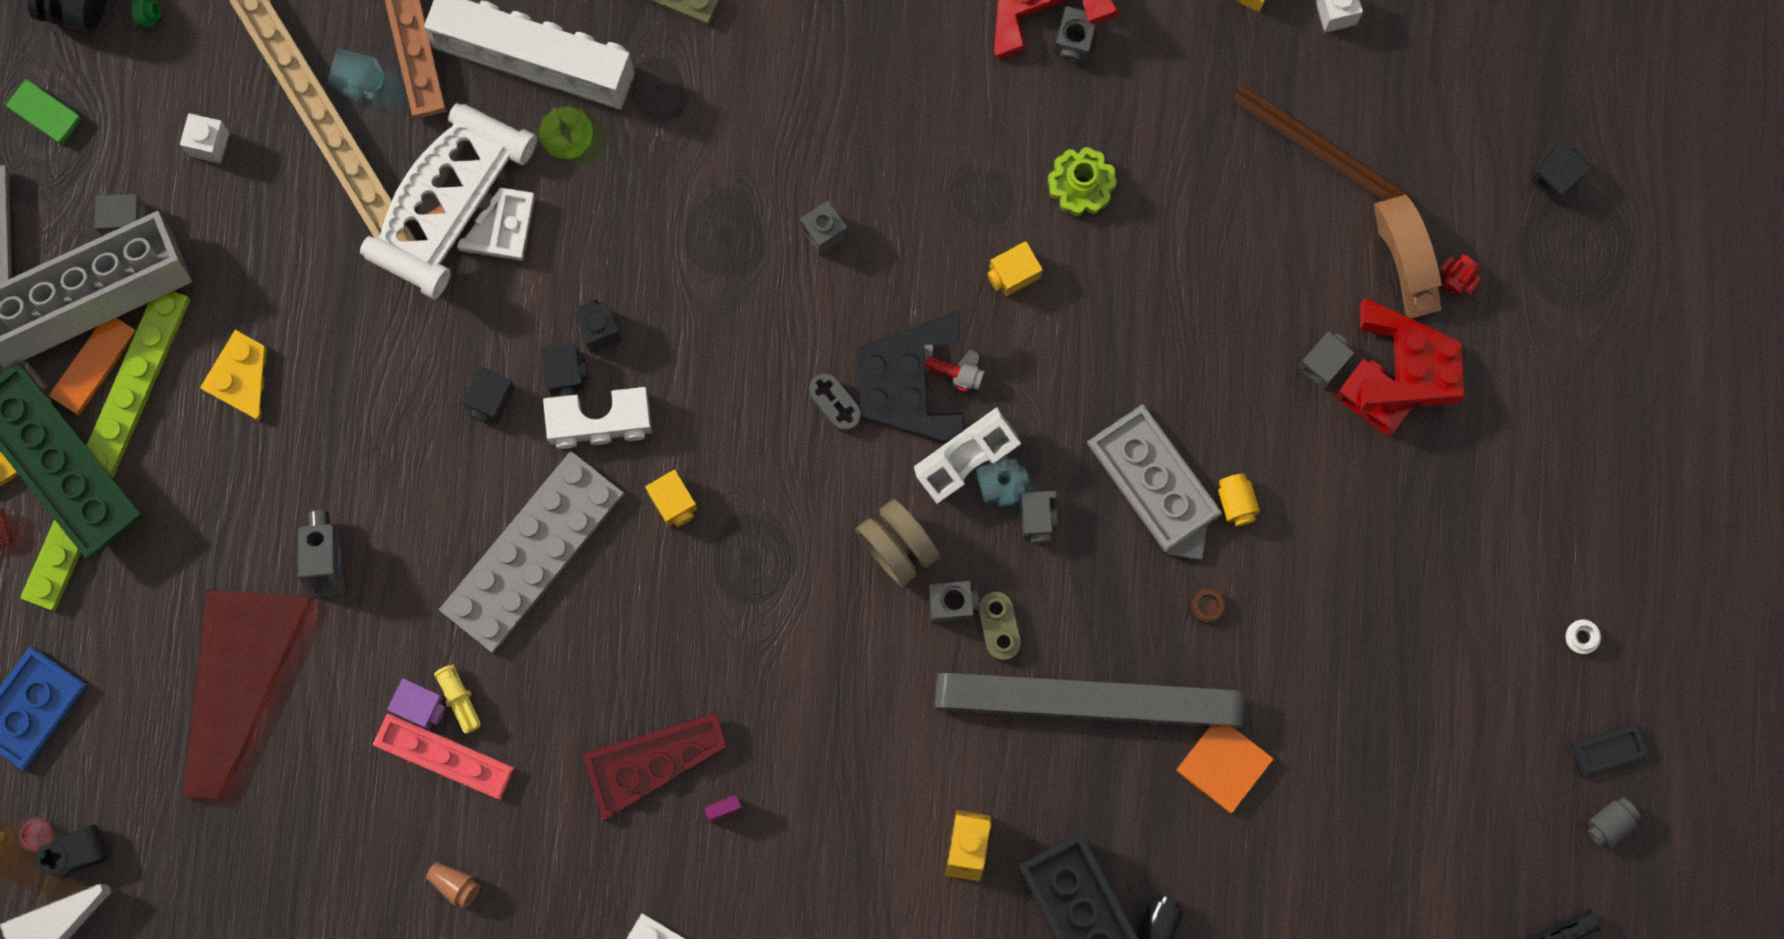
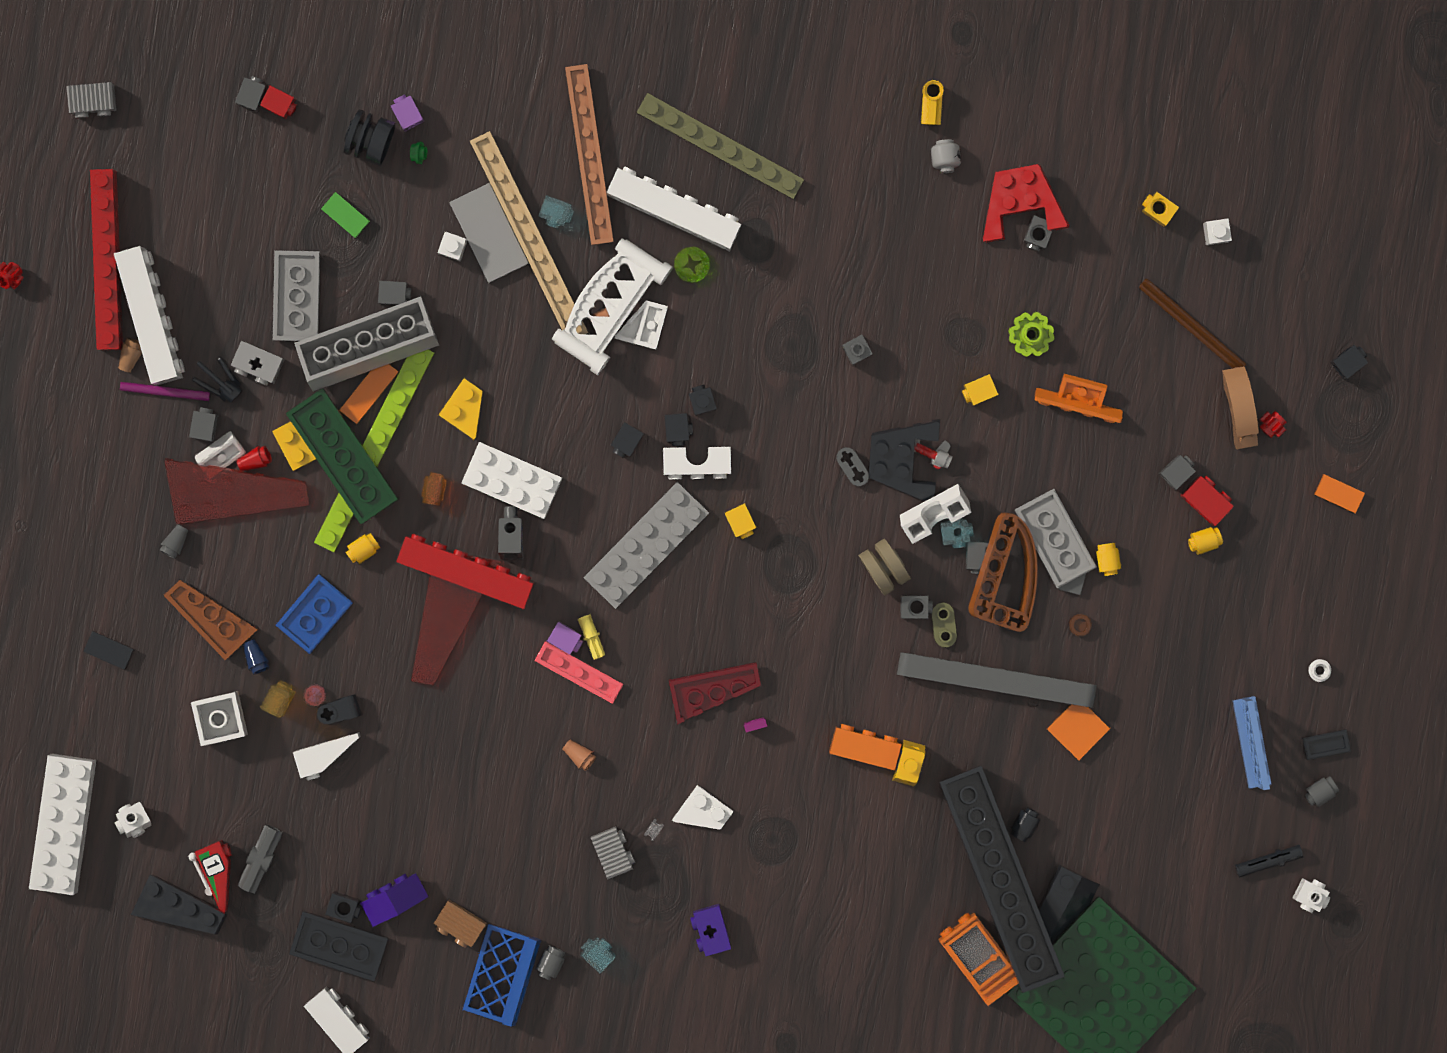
camera: 10 degrees right, 10 degrees up
(95, 599) = (362, 548): none -> yellow brick
(199, 498) = (433, 489): none -> clear orange brick
(250, 613) = (466, 572): none -> red brick
(259, 116) = (489, 233): none -> light grey tile
(317, 472) = (512, 480): none -> white brick
(898, 825) = (865, 747): none -> orange brick
(1068, 542) = (1001, 556): none -> dark orange beam
(1166, 262) = (1080, 396): none -> orange bracket
(1382, 457) = (1205, 540): none -> yellow brick
(1425, 362) = (1241, 484): red wing -> none
(1496, 757) = (1252, 743): none -> medium blue fence
(1573, 369) = (1339, 493): none -> orange tile

